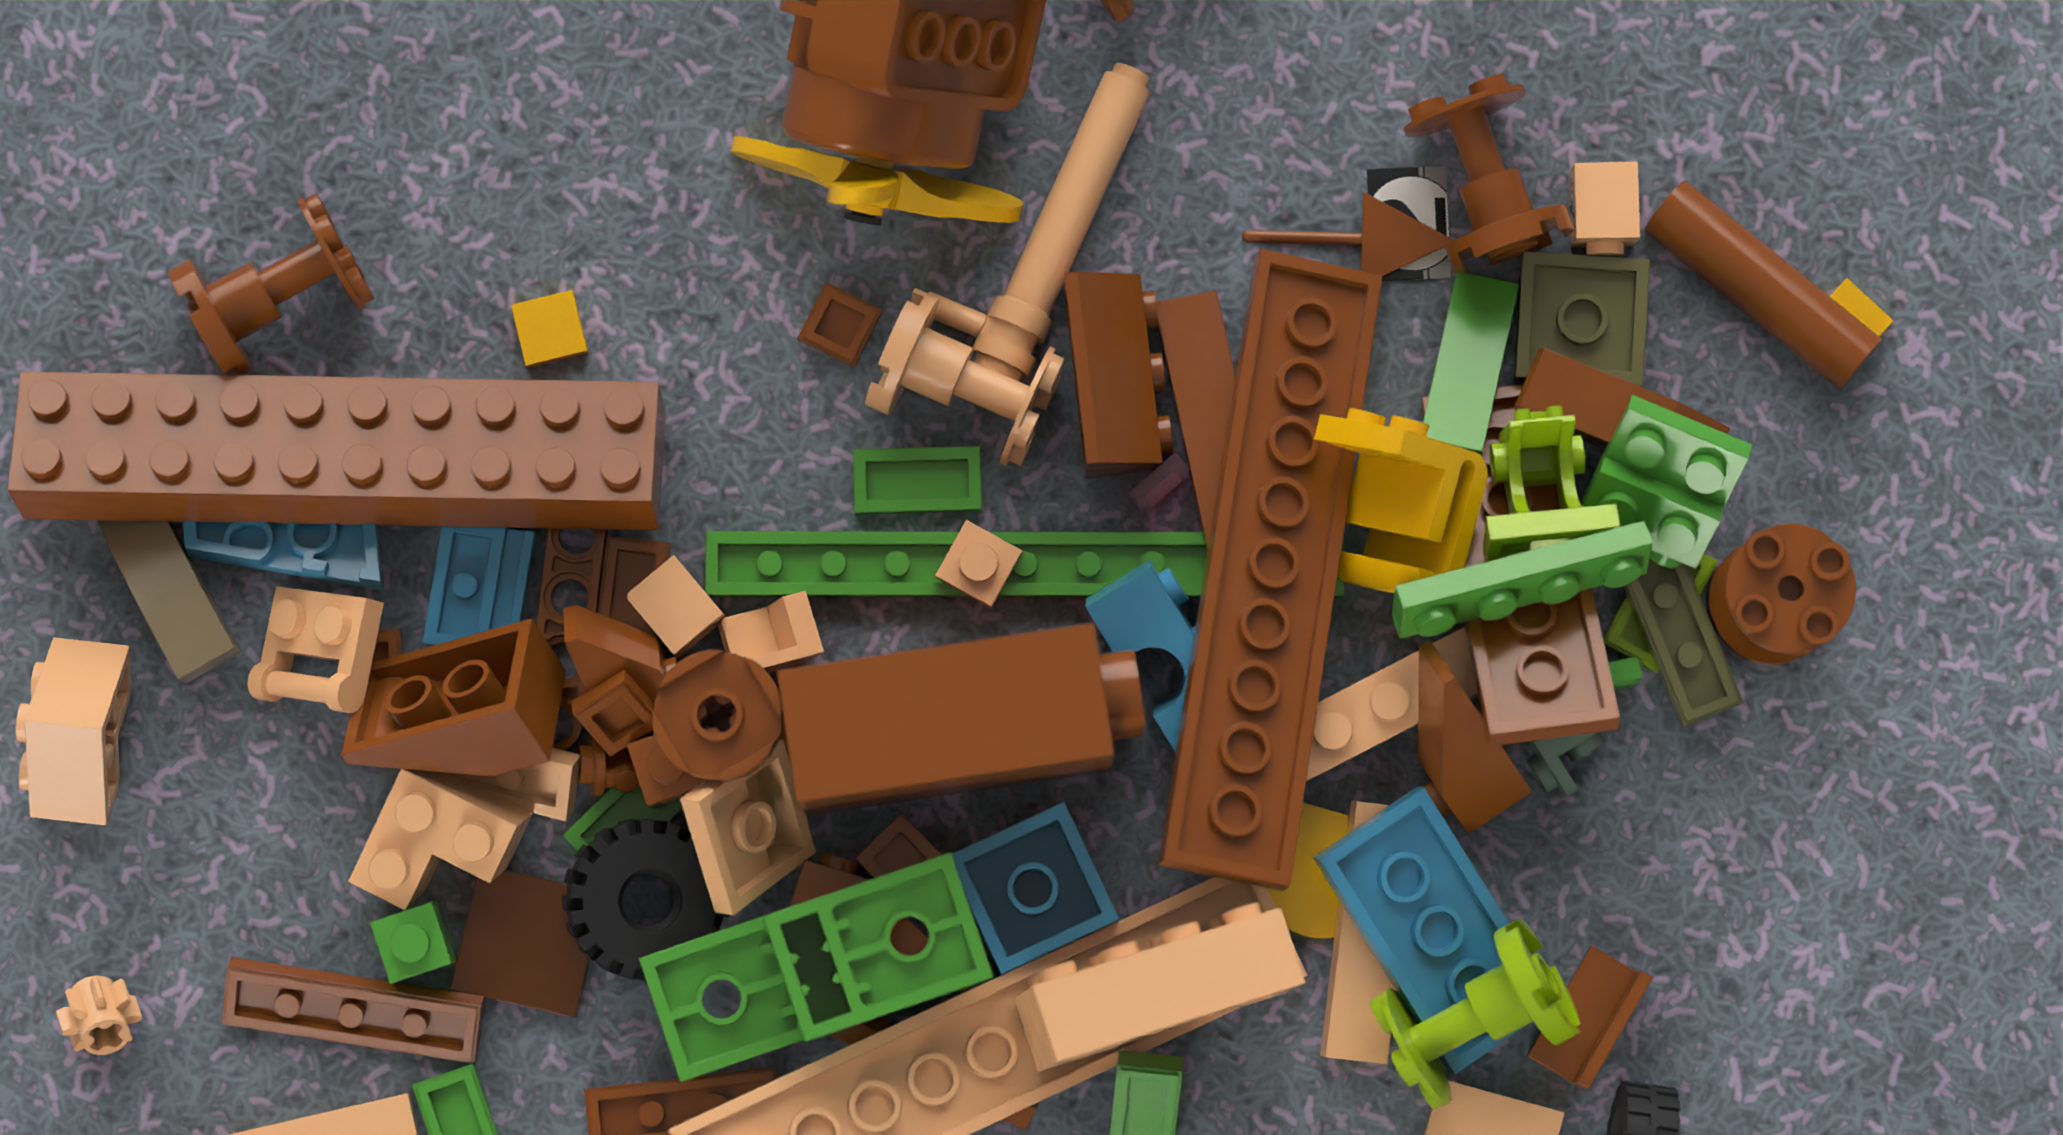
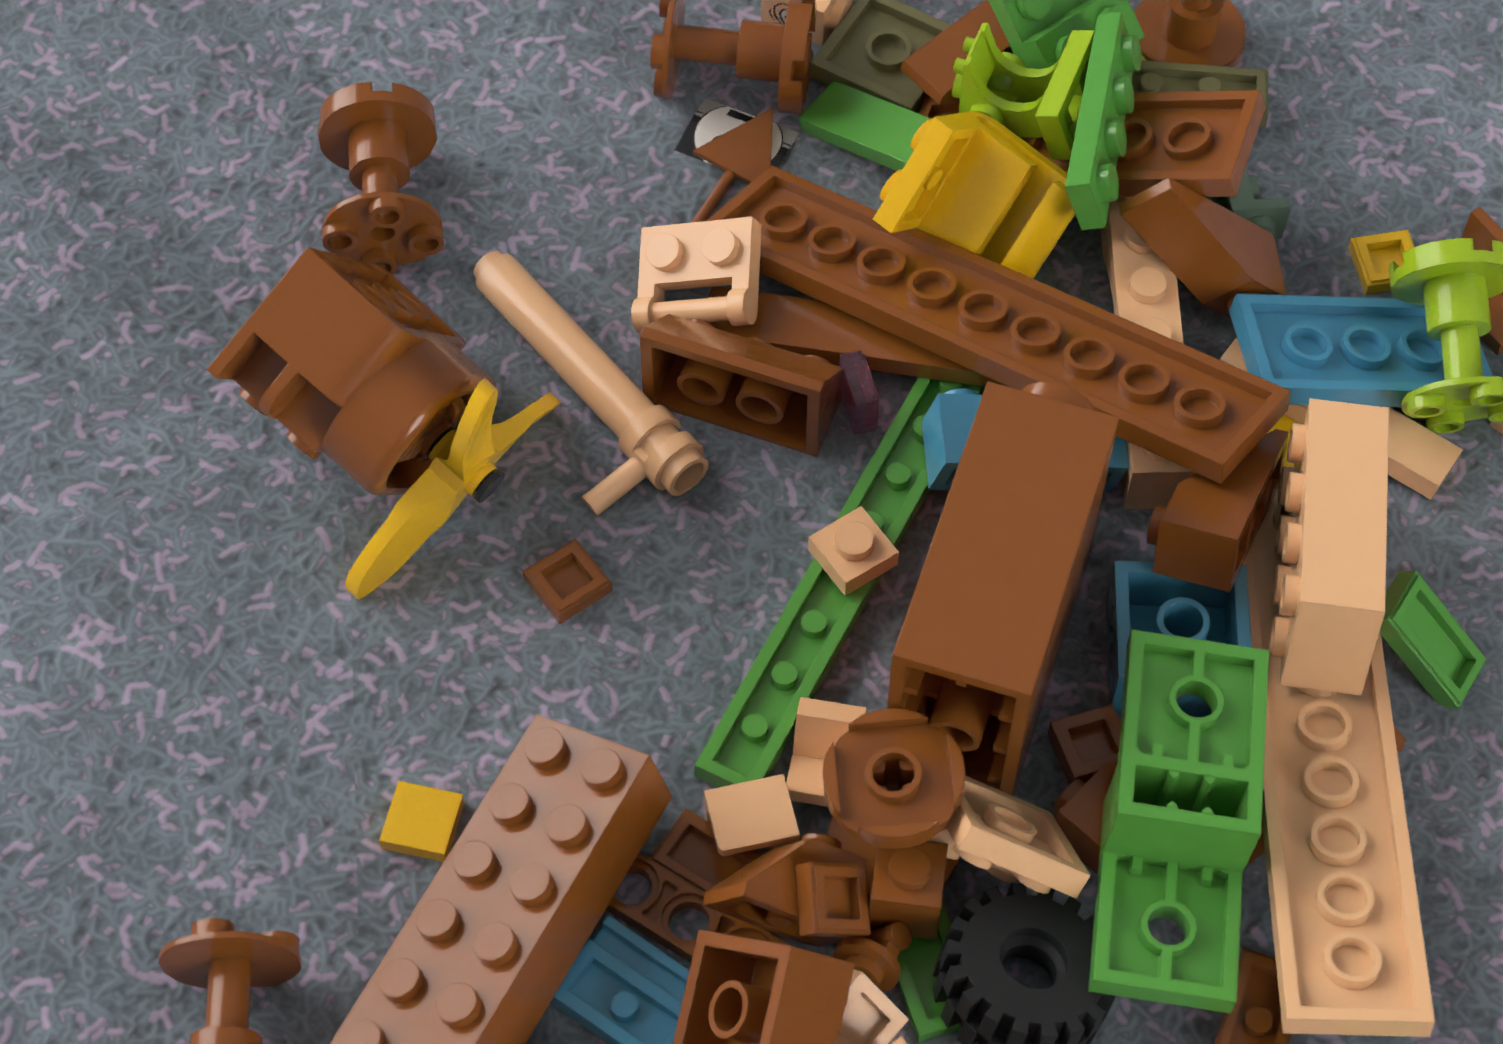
camera: 65 degrees left, 25 degrees down
(917, 480) = (744, 582): bright green tile -> none
(943, 369) = (653, 501): light nougat piece -> none
(1118, 874) = (1212, 525): none -> dark orange slope
(1224, 270) = (699, 257): none -> light nougat plate
(1580, 910) = (1373, 256): none -> yellow tile

